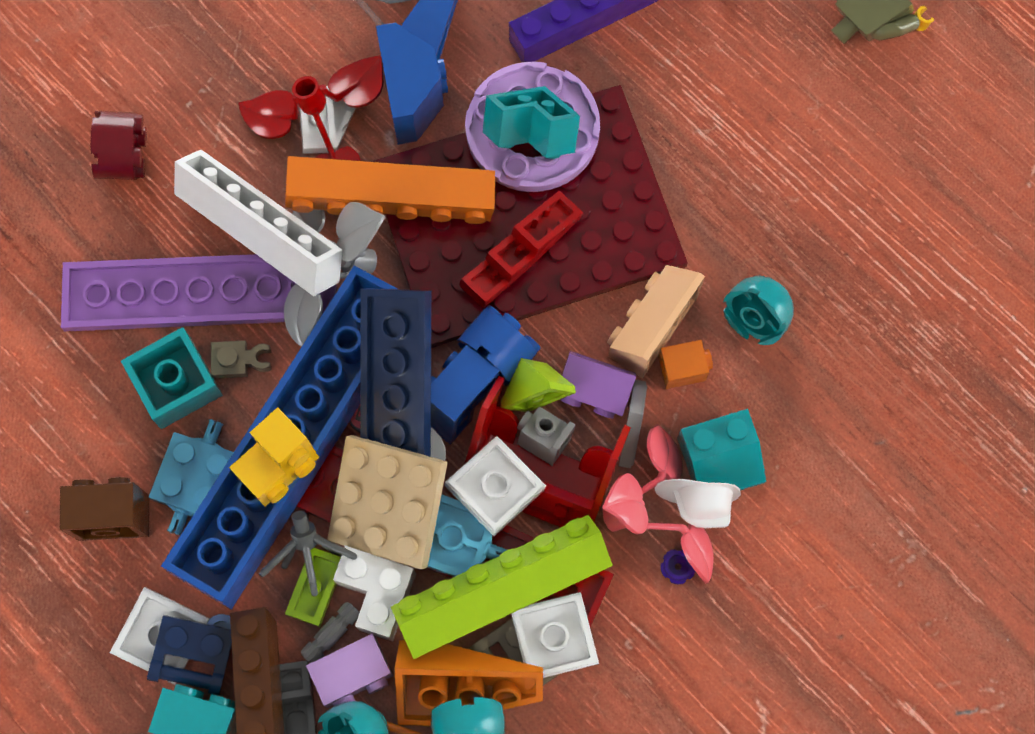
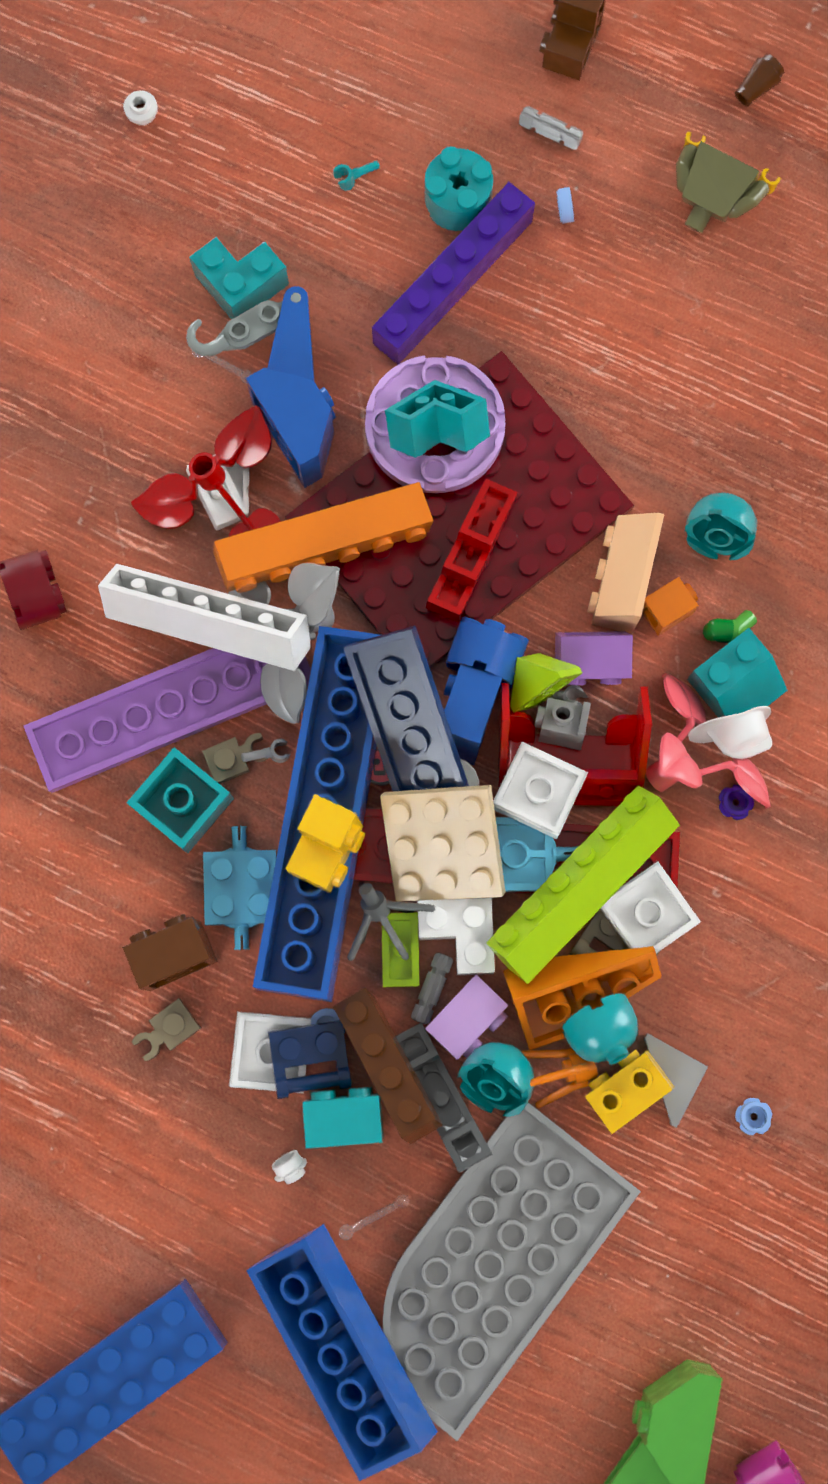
camera: 20 degrees left, 5 degrees up
(82, 580) = (171, 1027): none -> dark tan plate
(267, 364) = (267, 753): none -> light grey hand
(563, 411) = (570, 694): none -> light grey hand
(634, 421) = (643, 674): light grey tile -> none
(726, 403) = (727, 629): none -> green arm

